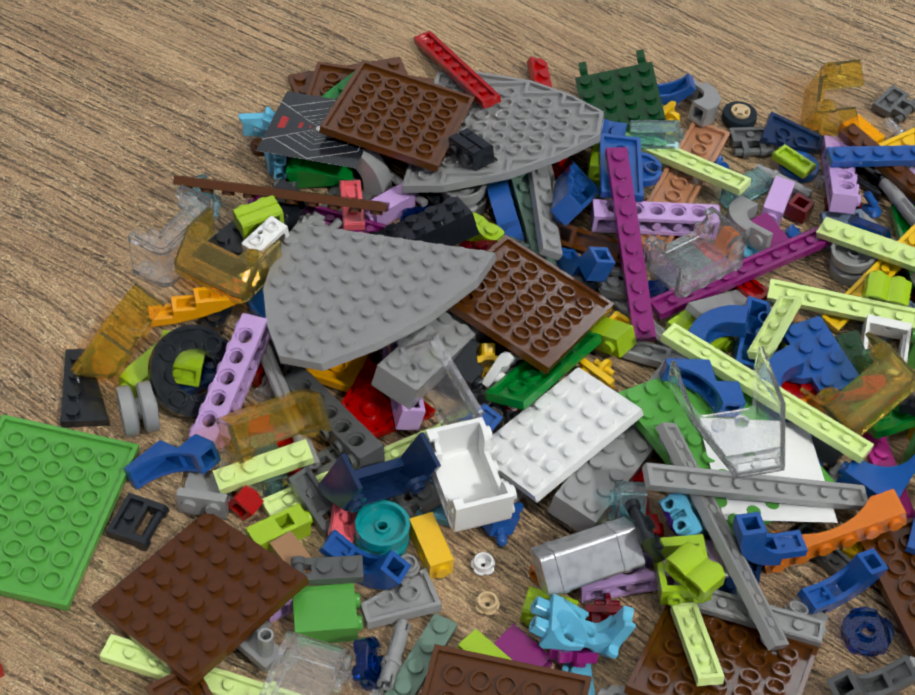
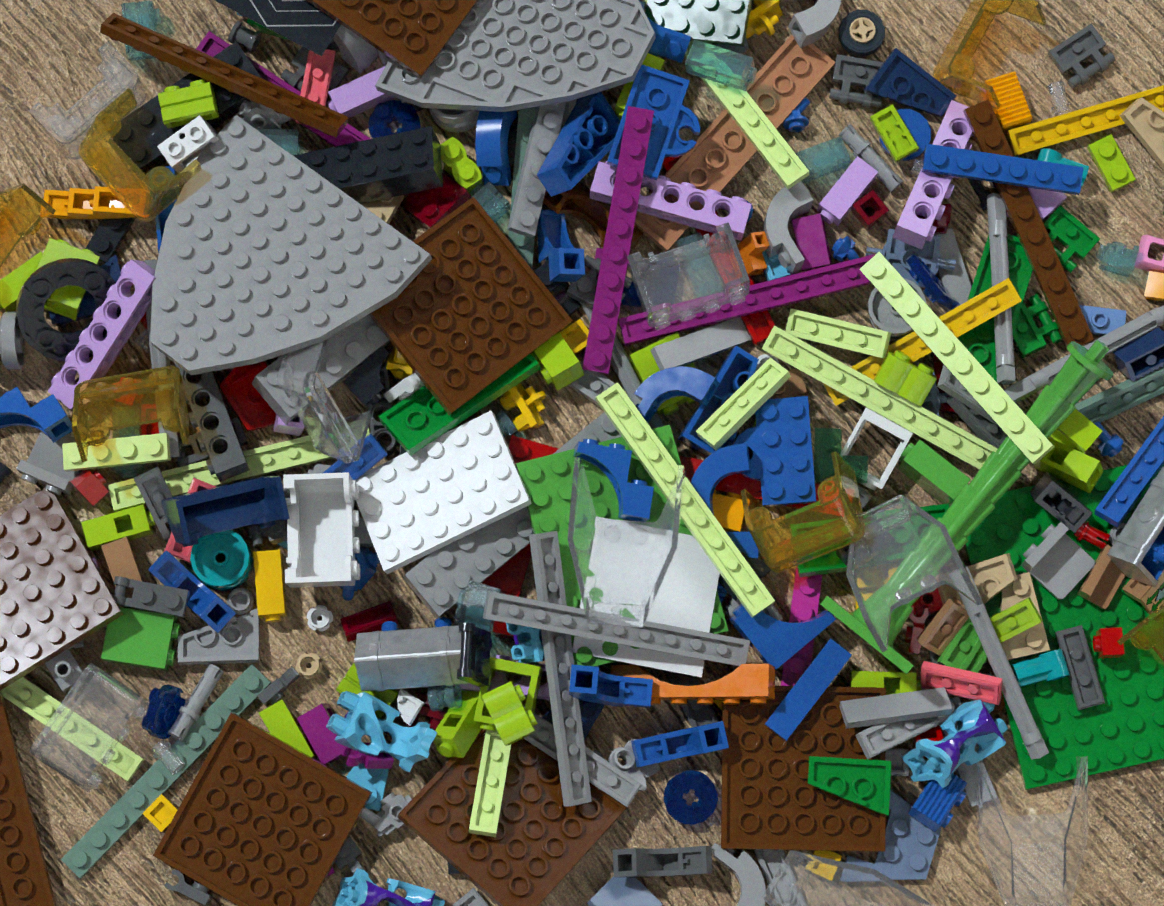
camera: 20 degrees right, 30 degrees up
(465, 624) = (275, 690): none -> dark grey plate
(471, 149) = (469, 58): black brick -> none
(521, 559) = (368, 620): none -> dark red tile
(594, 605) = (408, 706): none -> white tile
(619, 591) = (444, 697): none -> clear light blue wheel
(649, 615) = (458, 727): none -> lime brick
(826, 277) = (838, 333): none -> yellowish green plate
(871, 208) = (964, 227): blue plate -> none

